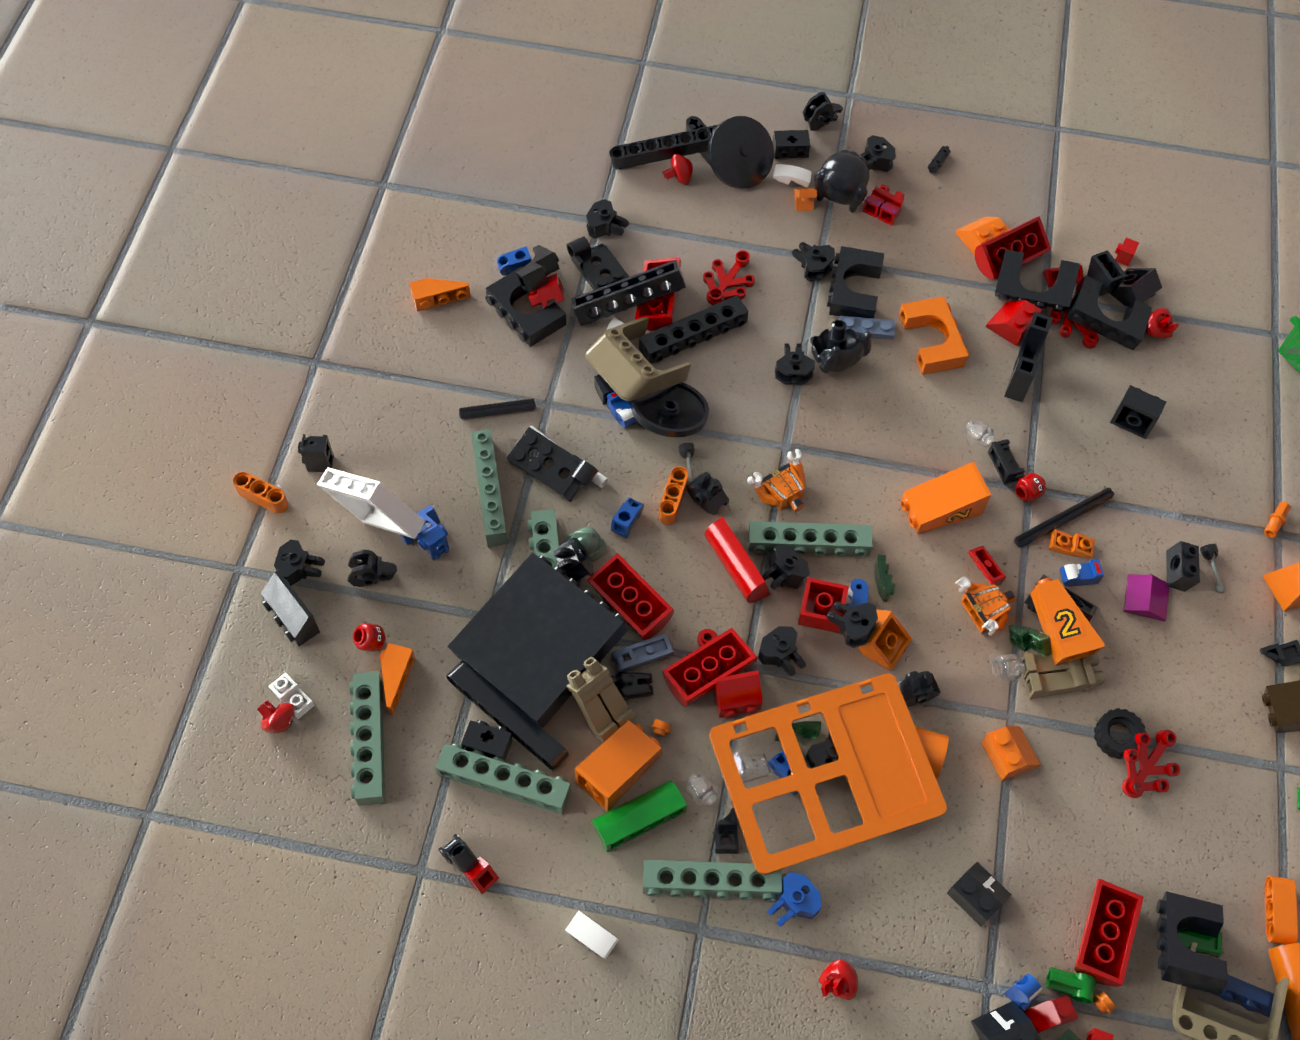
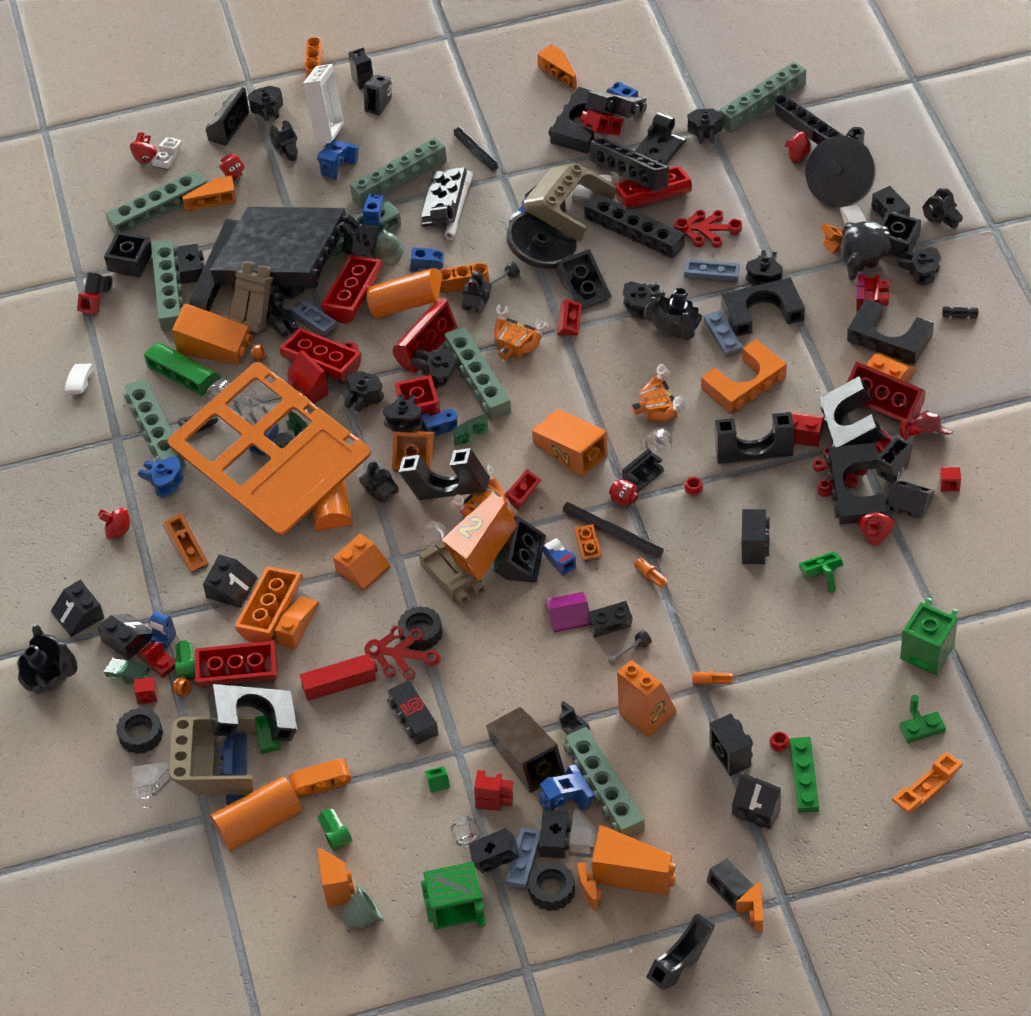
camera: 70 degrees right, 10 degrees down
(358, 447) = (377, 94): none -> black torso
(434, 800) = (128, 254): none -> black brick
(542, 527) = (373, 209): none -> blue leg
(596, 161) = (761, 96): none -> sand green brick
(676, 551) = (404, 293): none -> orange brick
(739, 400) = (583, 279): none -> black slope
(778, 433) = (569, 318): none -> red slope
(786, 299) = (712, 270): none -> sand blue plate
(827, 145) = (903, 232): none -> black brick
(901, 916) = (185, 542): none -> orange slope
(928, 410) = (657, 400): none -> orange torso
(929, 229) = (904, 347): none -> black arch
(967, 610) = (426, 484): none -> black arch
(1037, 862) = (268, 604): none -> orange brick
(1045, 428) = (693, 486): none -> red plate
(1061, 845) = (295, 621): none -> orange slope
(1062, 240) = (922, 422): none -> dark red hair
(1133, 510) = (650, 572): none -> orange axle
(1156, 837) = (338, 677): none -> red brick
(1182, 381) = (822, 564): none -> green plate
(1228, 786) = (412, 712): none -> black brick

